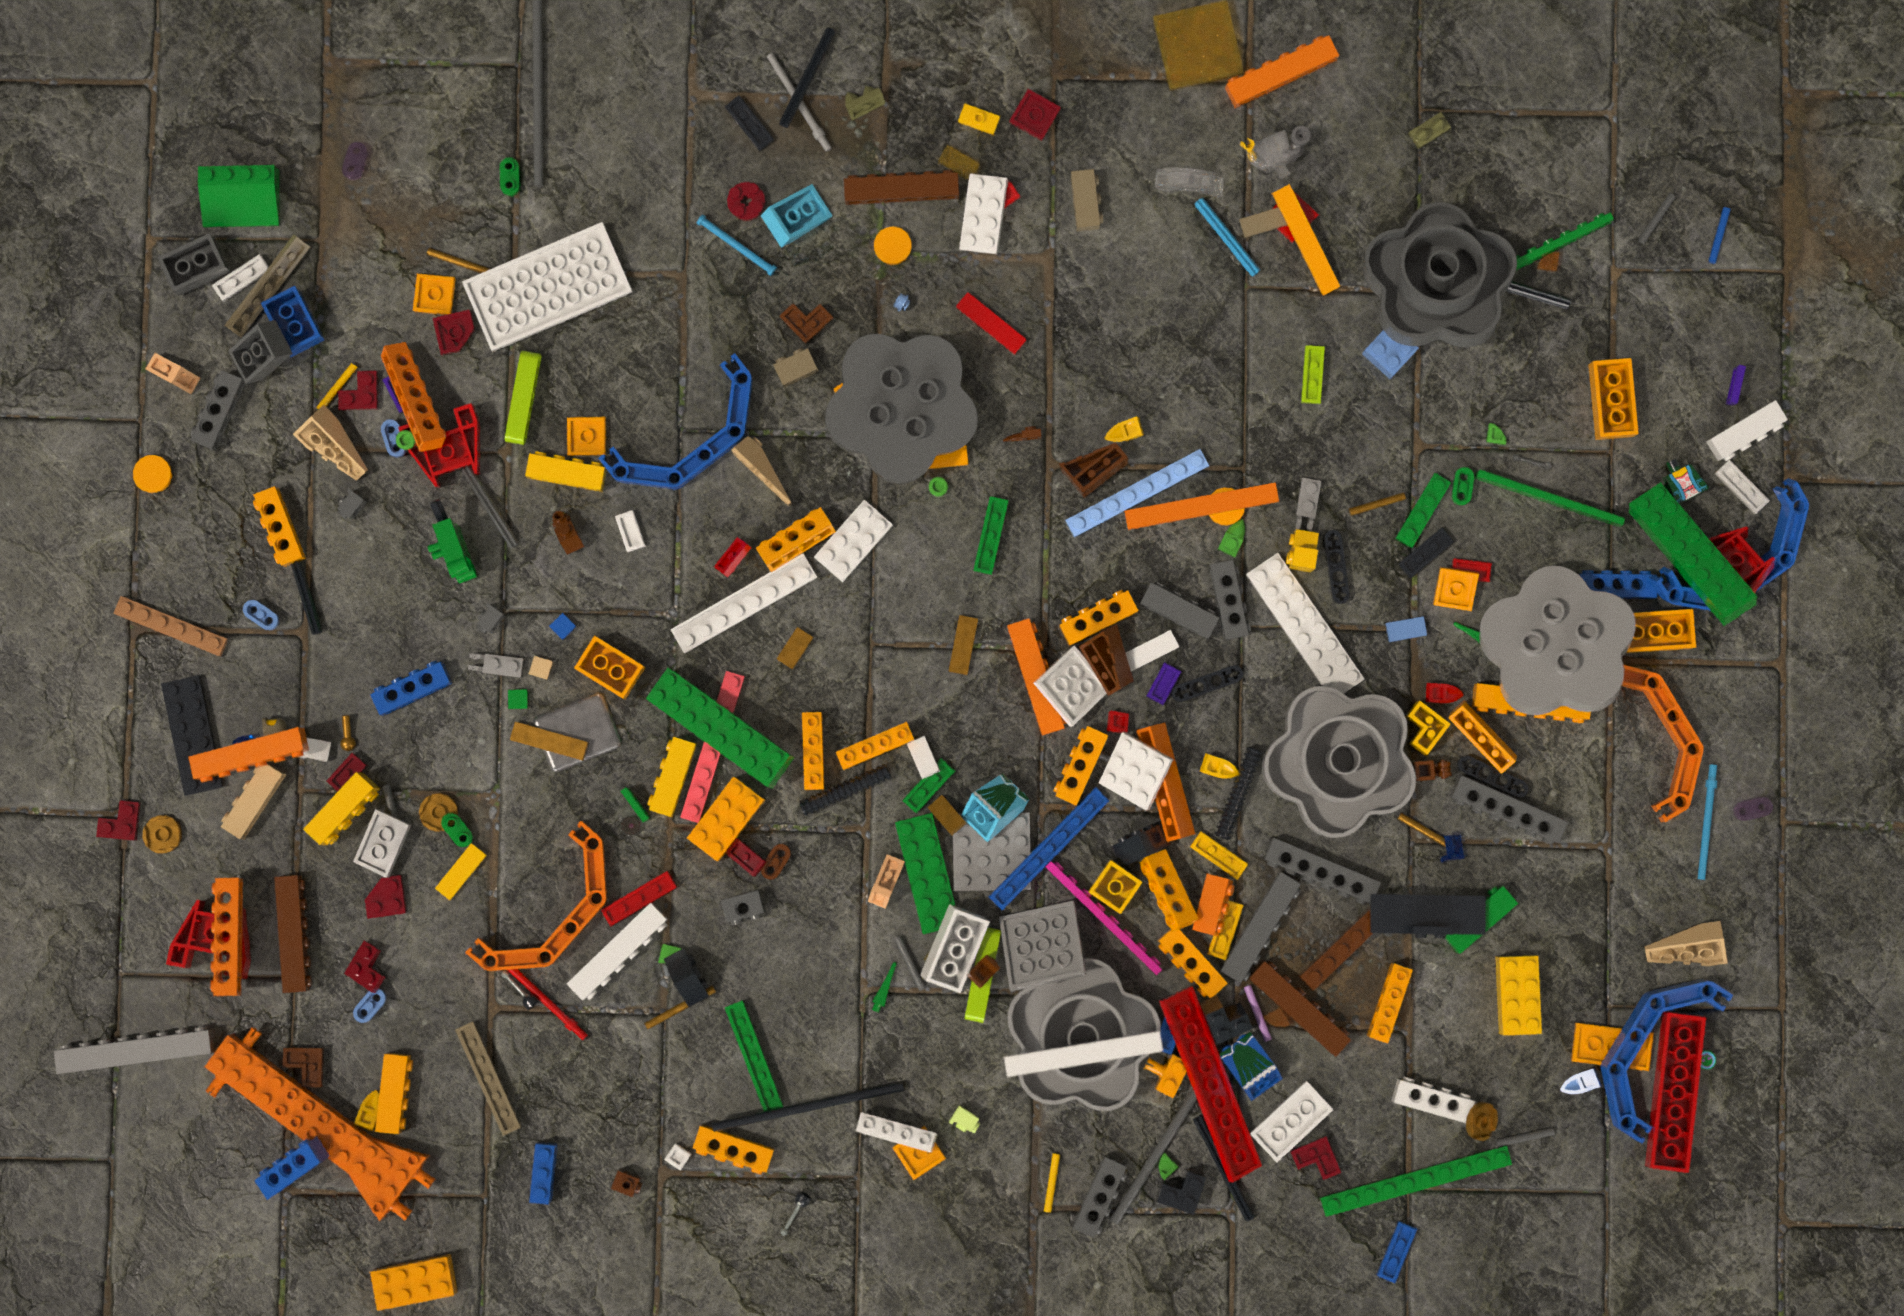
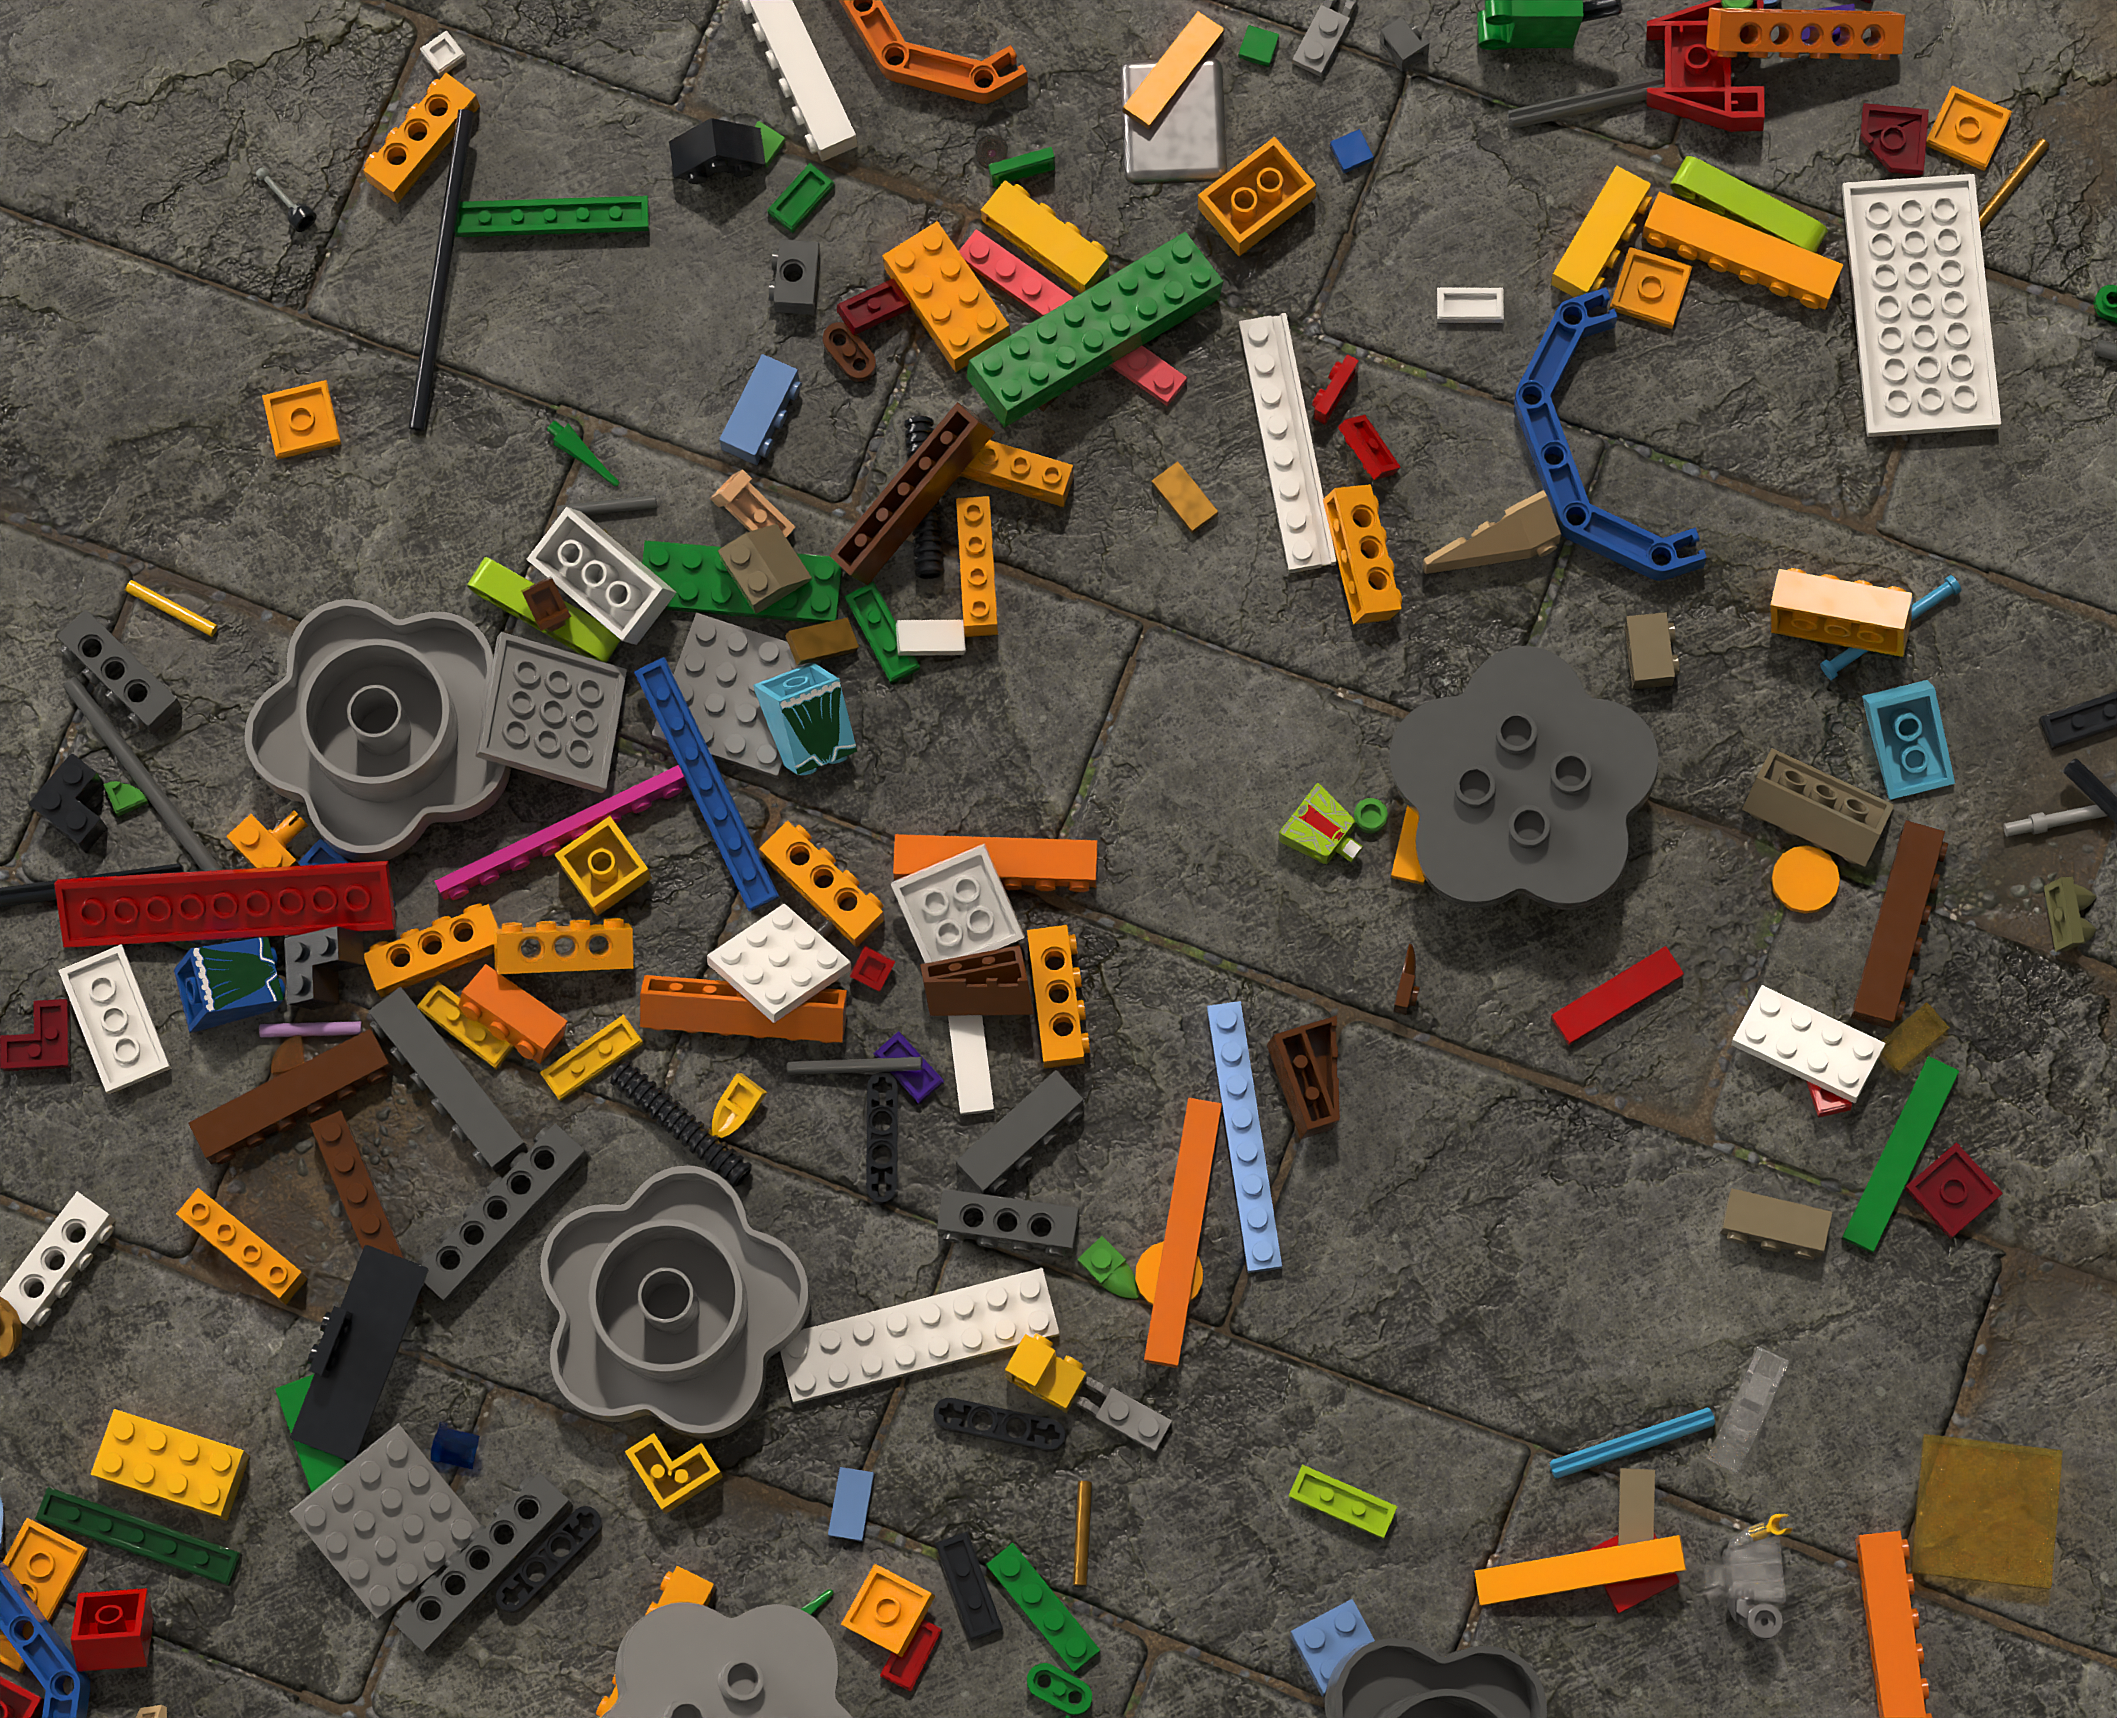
camera: 115 degrees right, 10 degrees down
(541, 667) = (1296, 96): tan tile -> none
(549, 393) = (1742, 251): none -> light orange brick
(566, 532) = (1498, 200): reddish brown brick -> none
(639, 898) = (871, 126): red tile -> none
(672, 1011) = (672, 119): pearl gold bar -> none
(694, 922) = (801, 198): none -> green tile
(713, 589) = (1328, 399): none -> red plate
(742, 270) = (1841, 612): none -> brick
(752, 192) = (1946, 679): dark red plate -> none
(806, 326) = (1714, 692): reddish brown plate -> none
(826, 897) = (760, 410): none -> medium blue brick
(851, 250) = (1817, 807): none -> dark tan slope
(851, 793) = (912, 493): none -> reddish brown brick
(853, 541) = (1328, 649): white plate -> none
(896, 1132) = (345, 389): white brick -> none
(902, 302) = (1702, 860): light blue plate -> none
(917, 860) = (764, 566): none -> dark tan slope
(956, 509) = (1321, 828): none -> lime torso
(963, 645) = (1092, 765): pearl gold tile -> none
(965, 1120) = (324, 505): yellowish green brick -> none
(979, 119) = (1977, 1096): yellow plate -> none
(990, 535) = (1257, 870): green plate -> none
(1024, 149) = (1900, 1154): none -> green tile
(1083, 1054) = (349, 700): white tile -> none
(1125, 430) = (1356, 1153): yellow plate -> none
(1140, 844) = (654, 931): black brick -> none
(1174, 712) = (855, 1066): none -> dark grey bar
(1422, 829) = (509, 1406): pearl gold bar -> none
(1428, 770) = (600, 1446): reddish brown brick -> none
(1442, 693) = (720, 1524): red plate -> none
(1482, 736) = (620, 1562): light orange brick -> none
(1506, 867) = (386, 1520): none -> light grey plate
(1559, 998) = (138, 1536): none -> dark green tile
(1617, 990) = (112, 1629): none -> red brick

